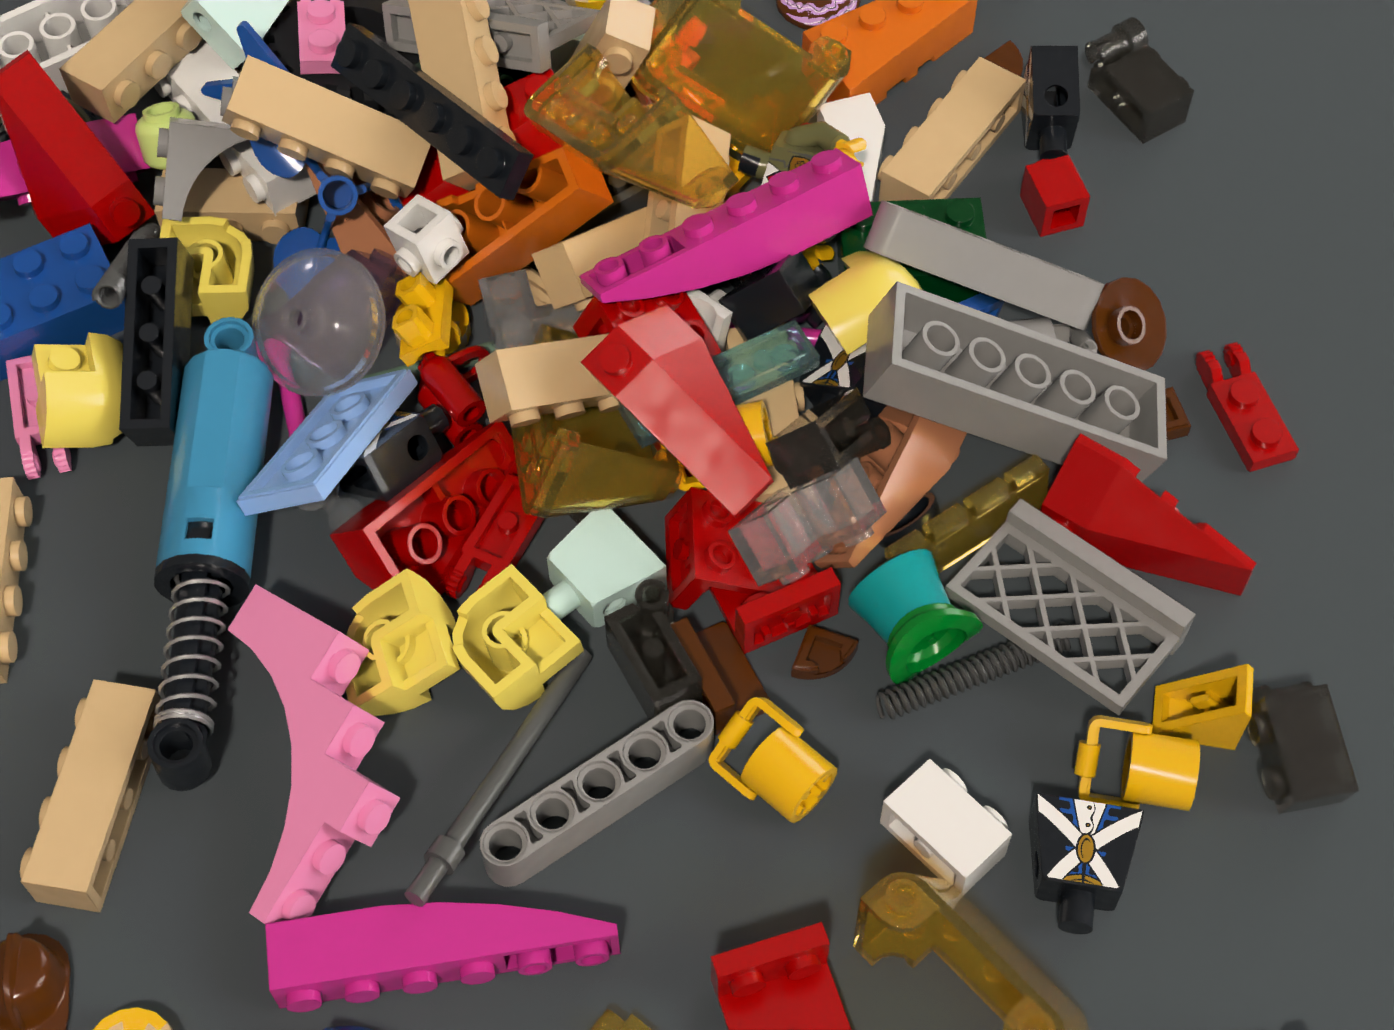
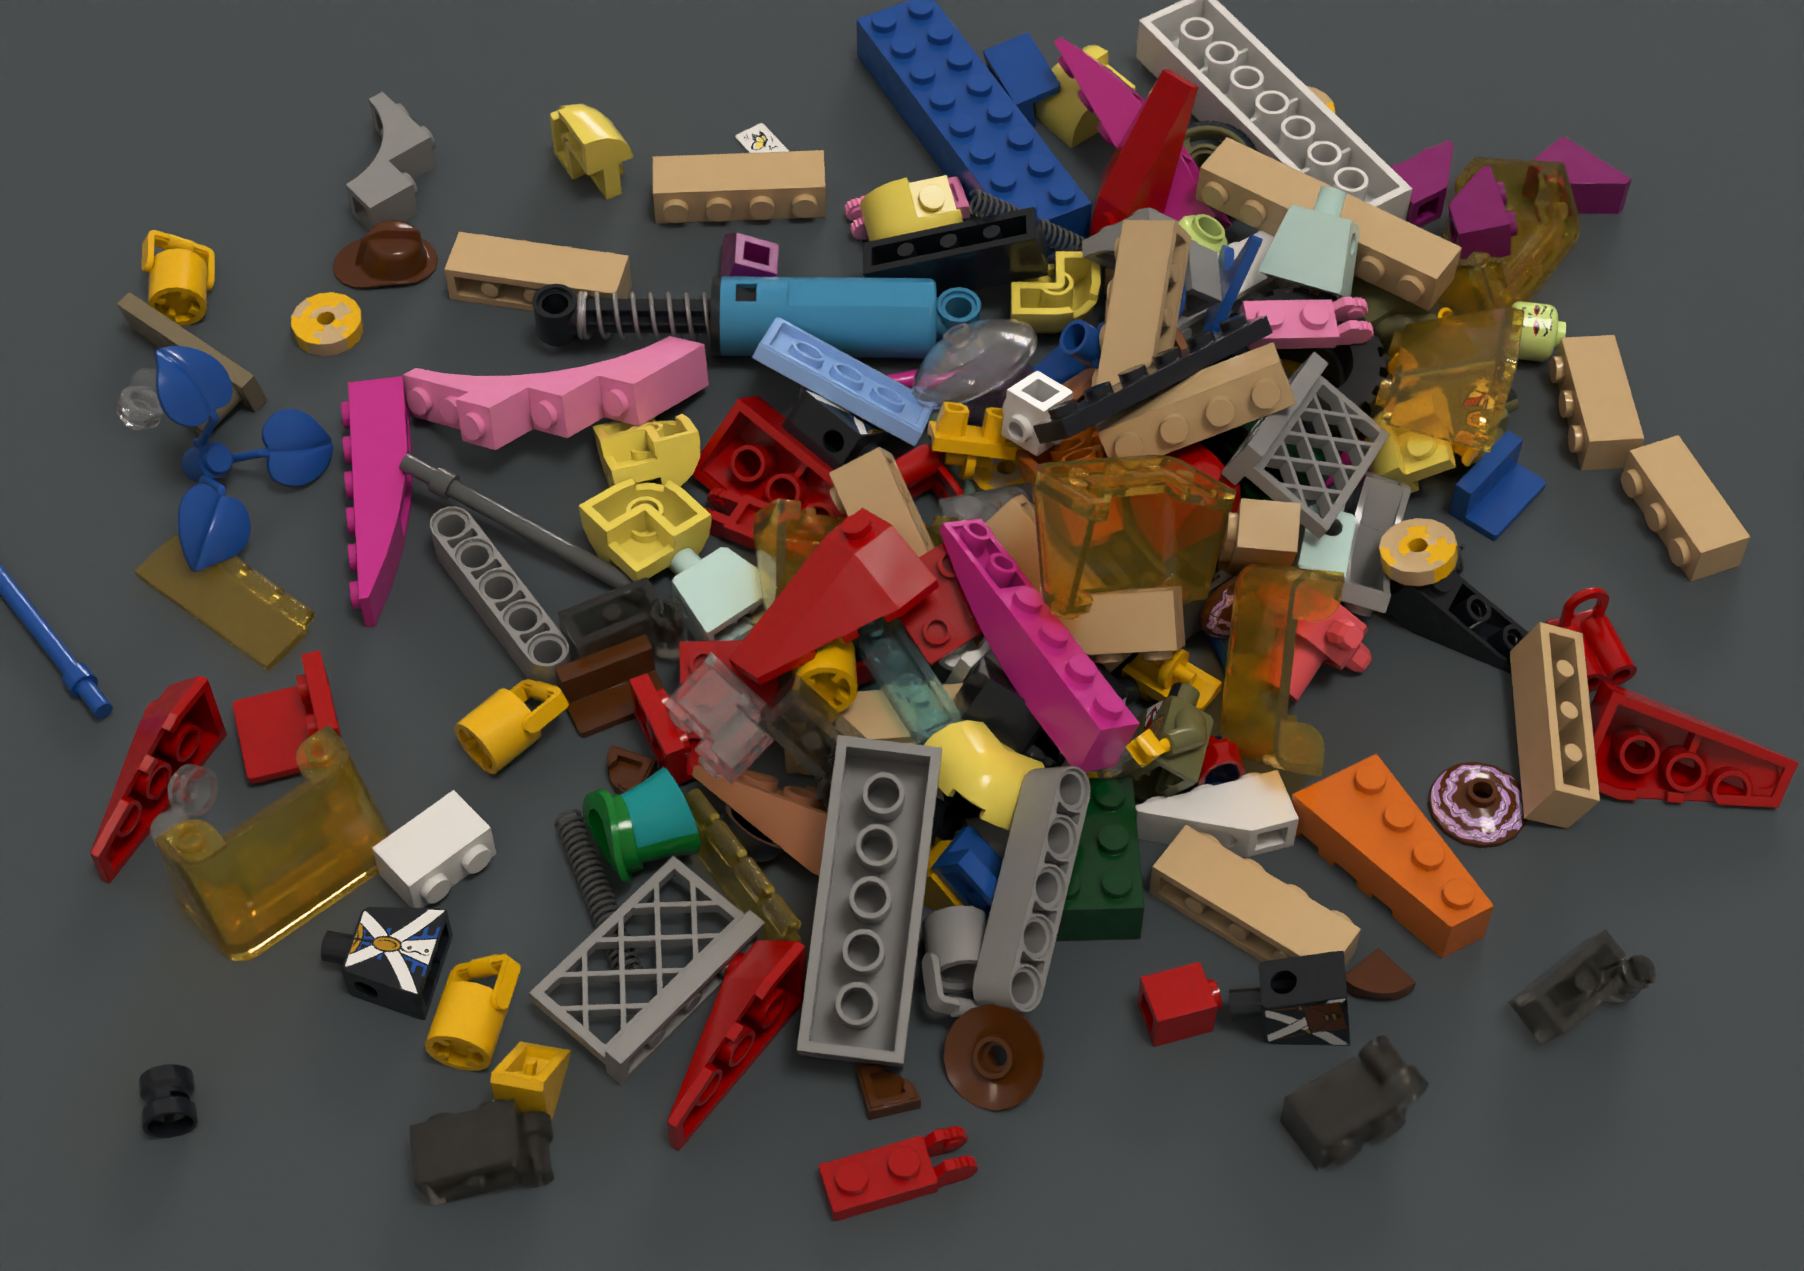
camera: 90 degrees right, 5 degrees down
(114, 559) = (748, 256): none -> magenta slope

